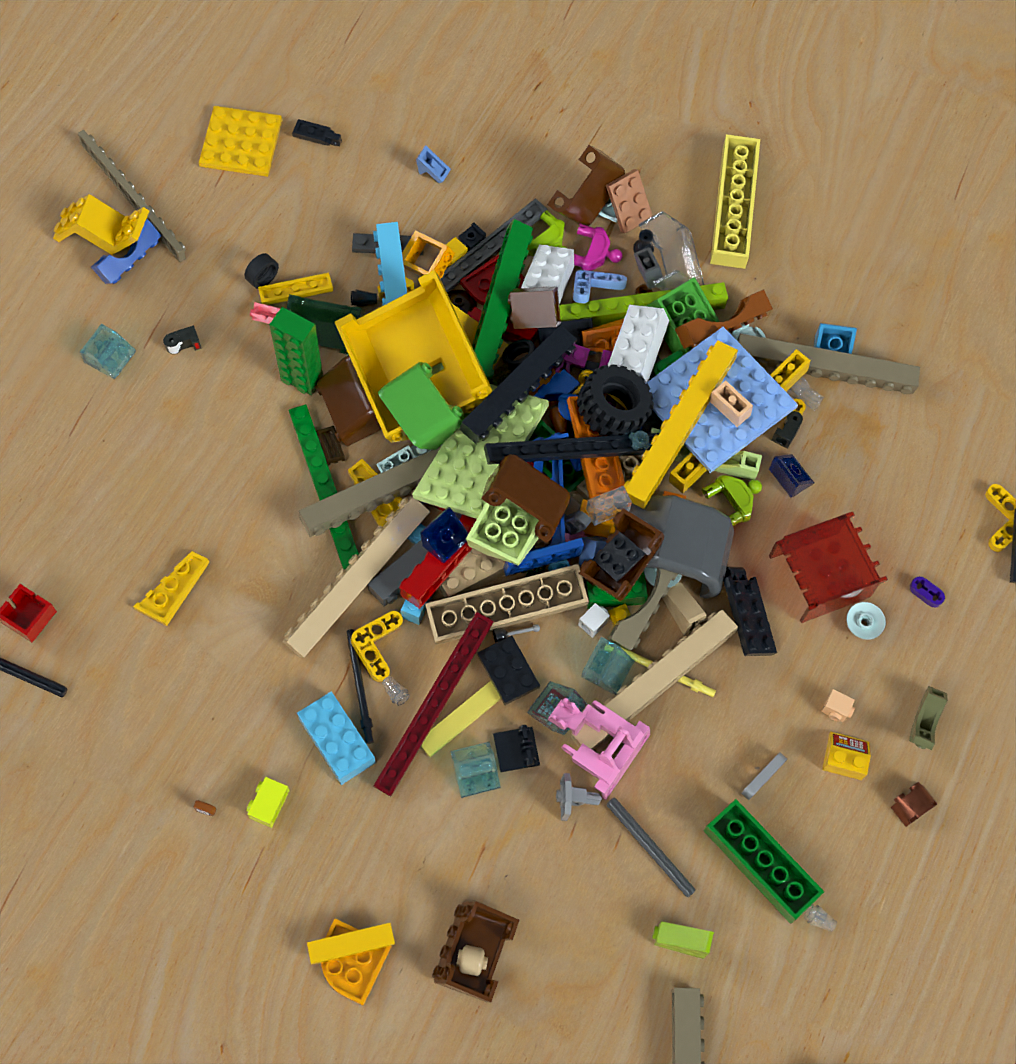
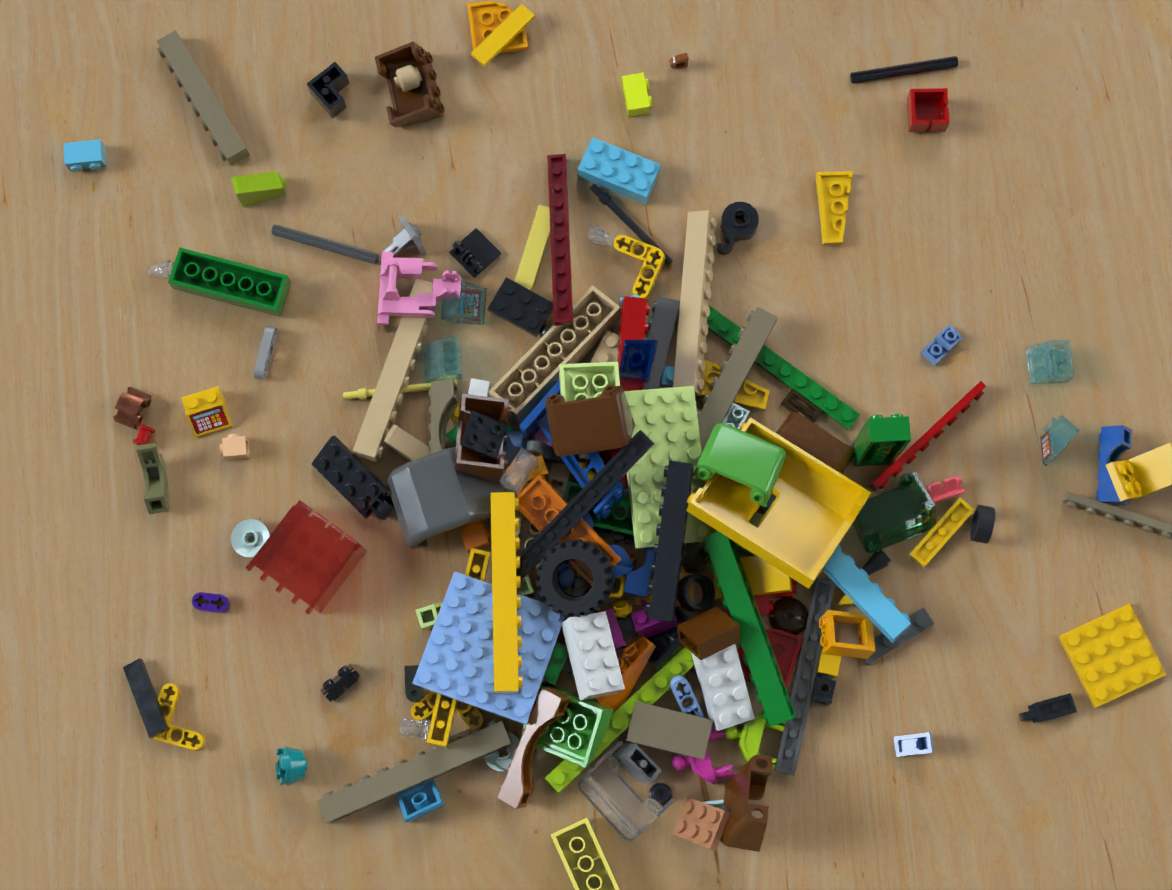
camera: 155 degrees right, 10 degrees up
(155, 292) = (1055, 437): none -> clear light blue slope
(178, 423) = (941, 345): none -> medium blue slope
(181, 340) = (1002, 414): pearl dark grey leg -> none
(228, 363) = (922, 443): none -> red plate
(276, 623) = (735, 231): none -> black piece
(475, 769) = (497, 215): clear light blue slope -> none
(560, 1002) = (326, 88): none -> black brick
(610, 271) = (669, 730): none -> dark tan tile
(643, 437) = (536, 553): clear light blue plate -> none
(731, 403) = (469, 634): light nougat brick -> none
(738, 495) = (422, 586): lime connector -> none
(790, 474) = (387, 639): clear blue slope -> none
(854, 466) = (333, 686): none -> black hinge
(915, 770) = (143, 435): none -> red bush
(926, 424) = (290, 765): none -> teal cone

